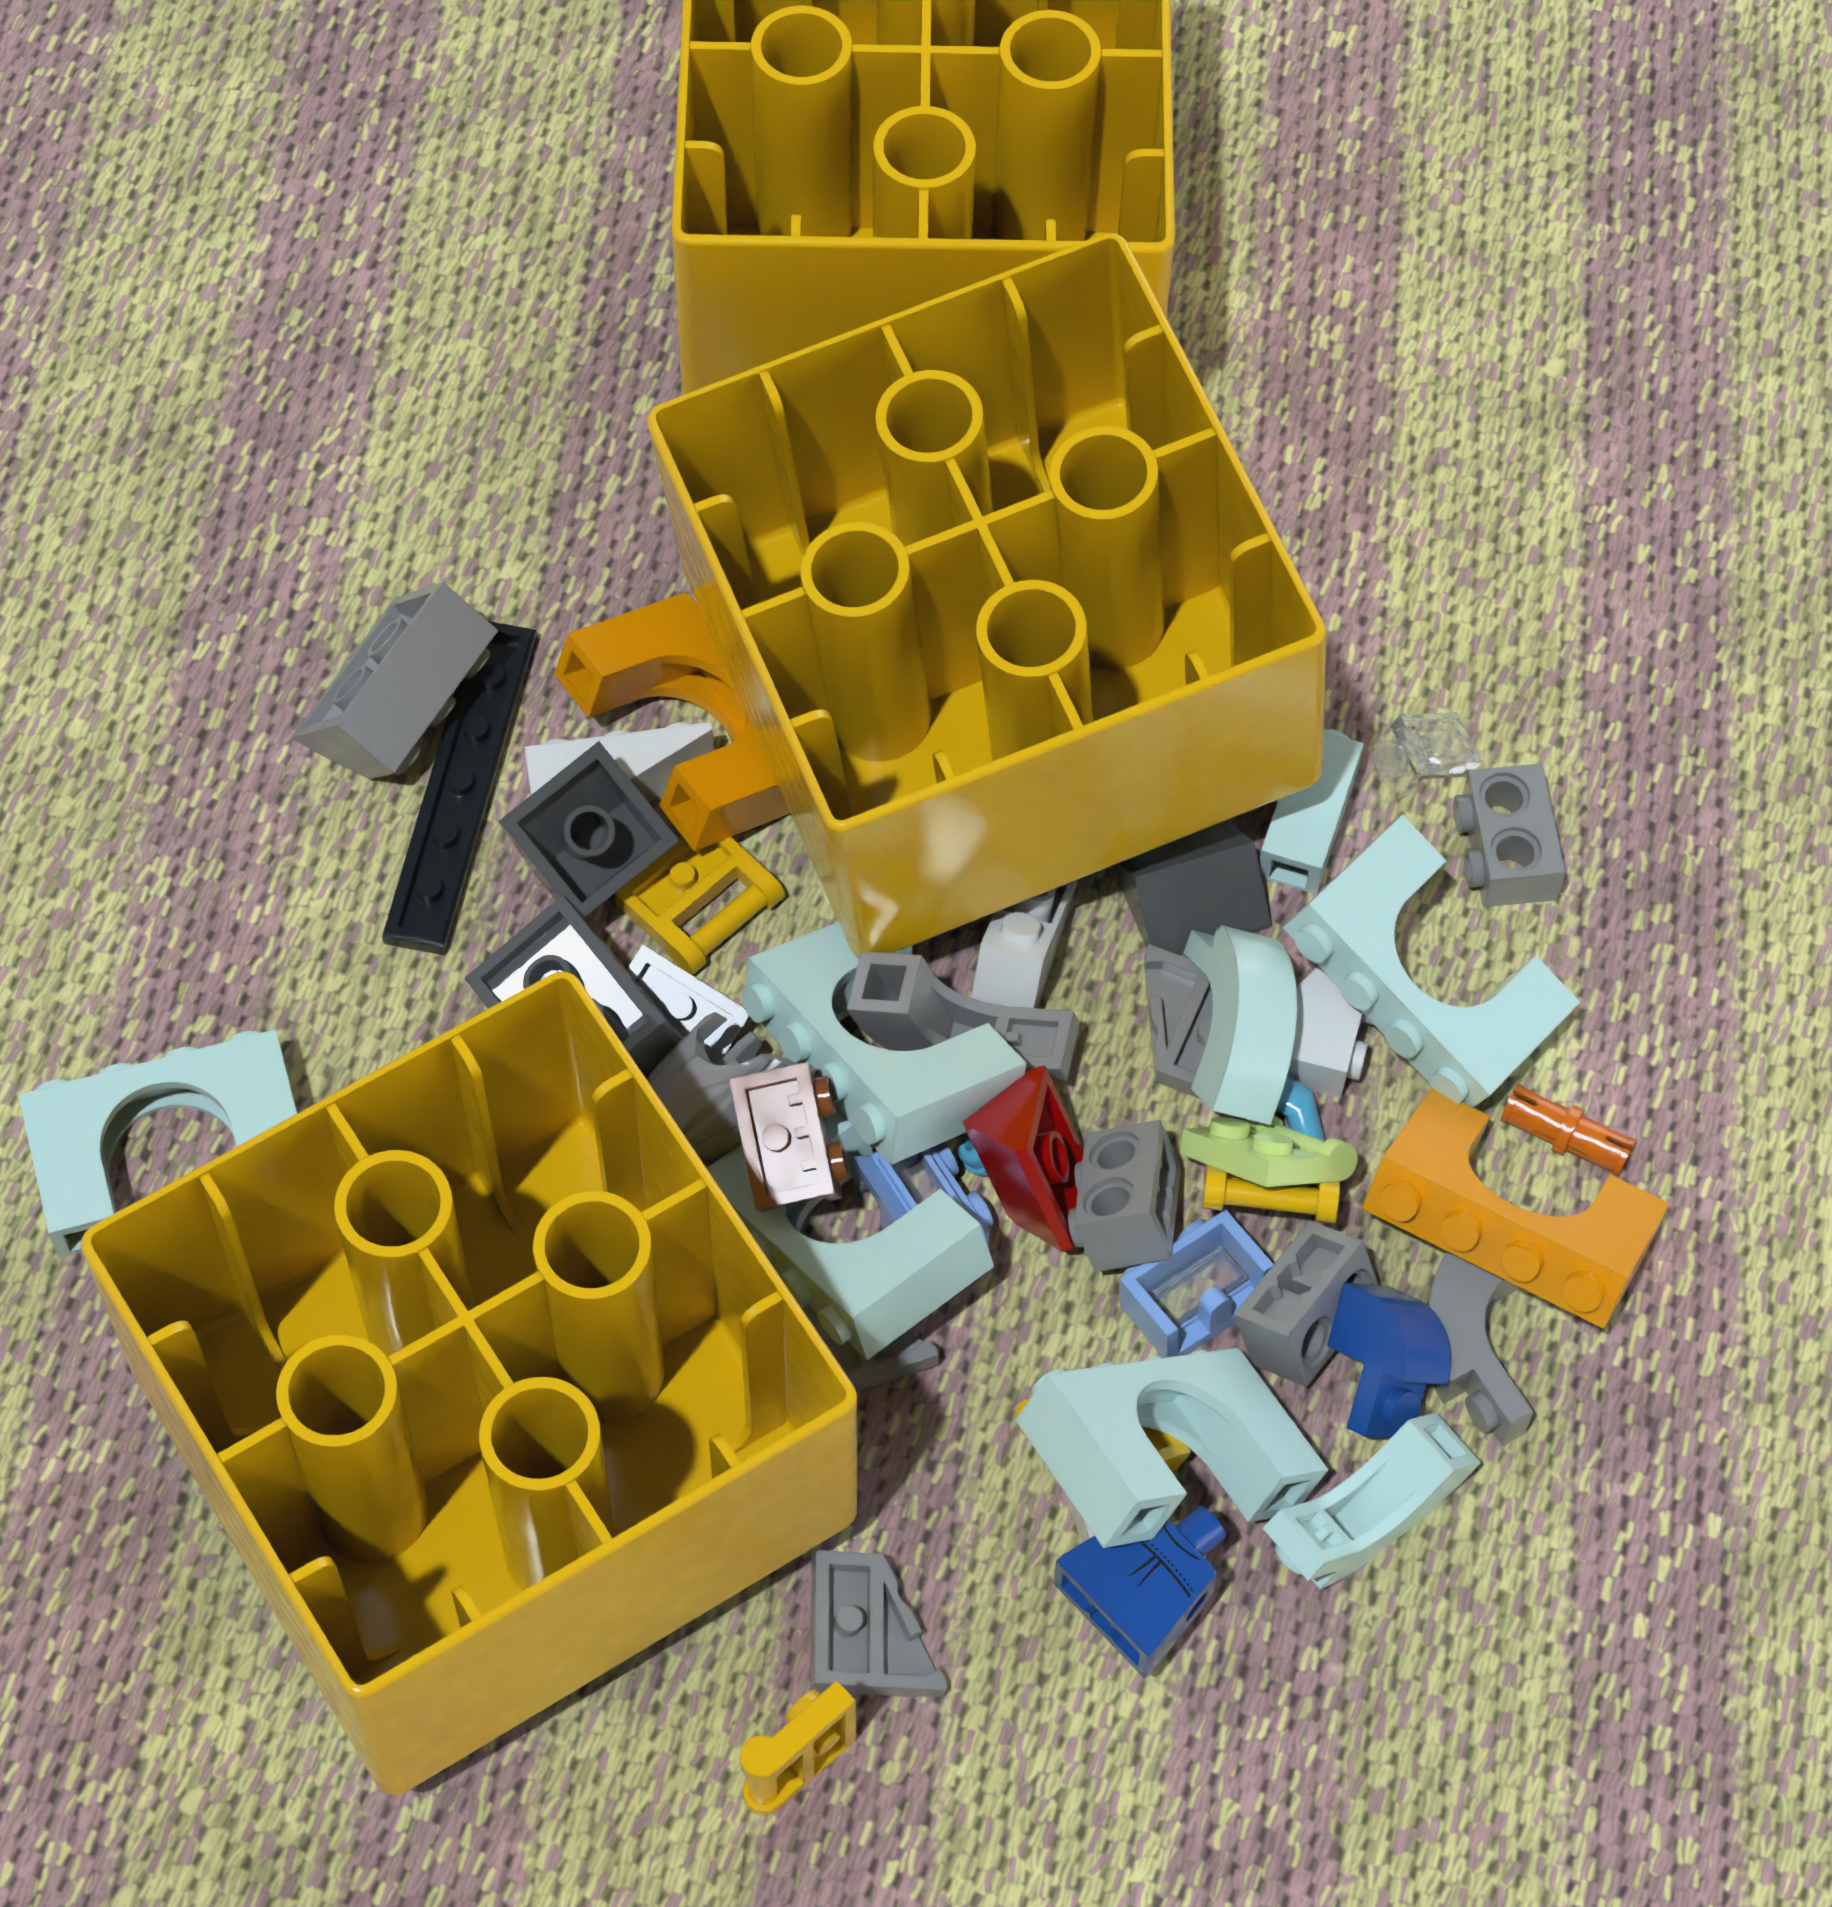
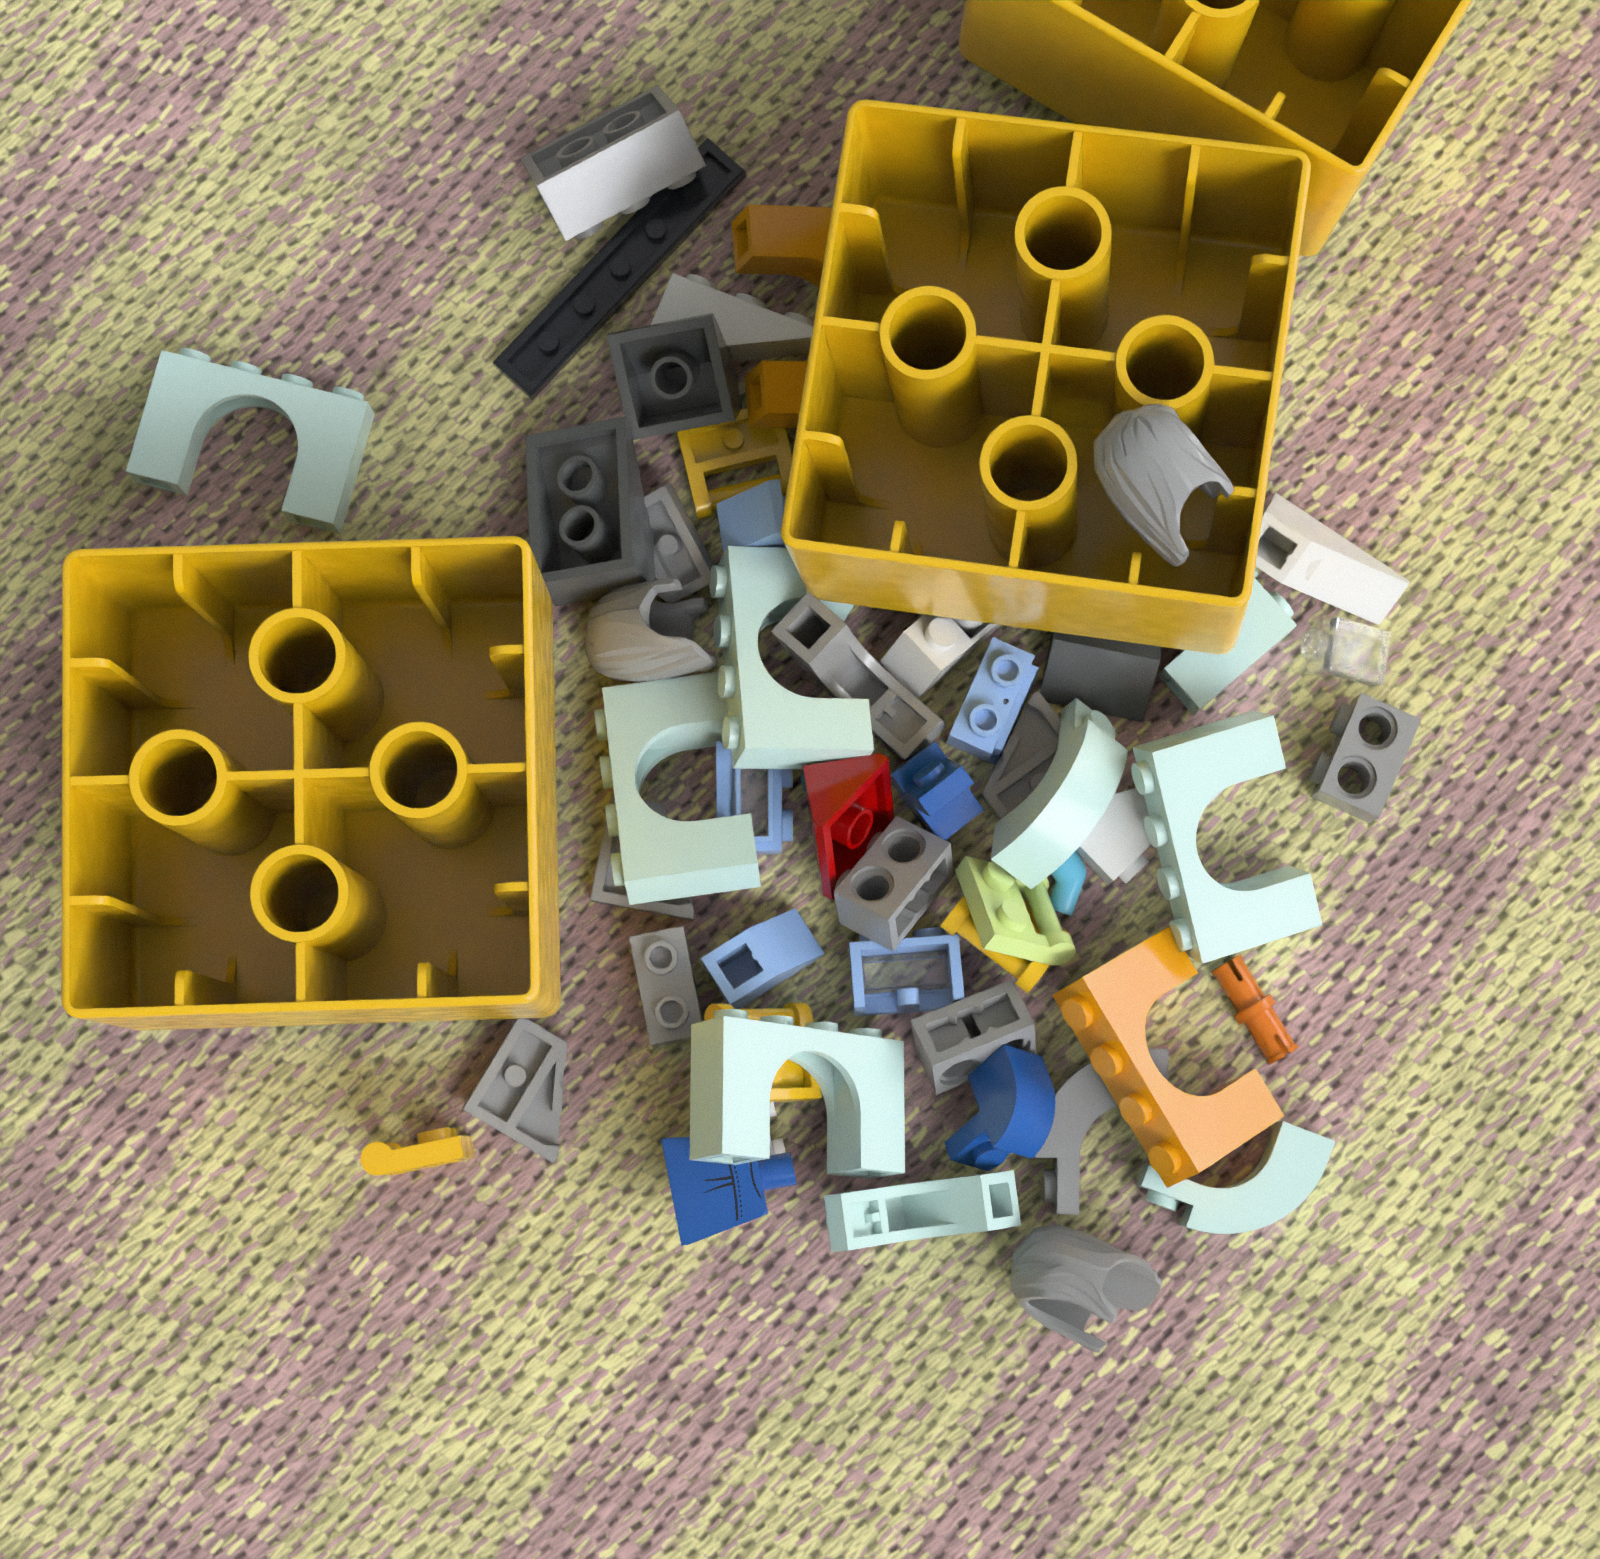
camera: 30 degrees right, 20 degrees up
(759, 917) = (753, 517): none -> light blue slope
(788, 1136) = (668, 710): bracket -> none
(956, 1435) = (666, 985): none -> light grey brick
(1031, 1342) = (761, 958): none -> light blue slope
(1107, 1082) = (936, 791): none -> blue brick
(1112, 977) = (994, 701): none -> light blue window
(1158, 575) = (1150, 469): none -> light grey hair
(1382, 682) = (1324, 564): none -> white slope
(1576, 1478) = (1072, 1275): none -> light grey hair
(1709, 1269) = (1275, 1188): none -> light aqua arch

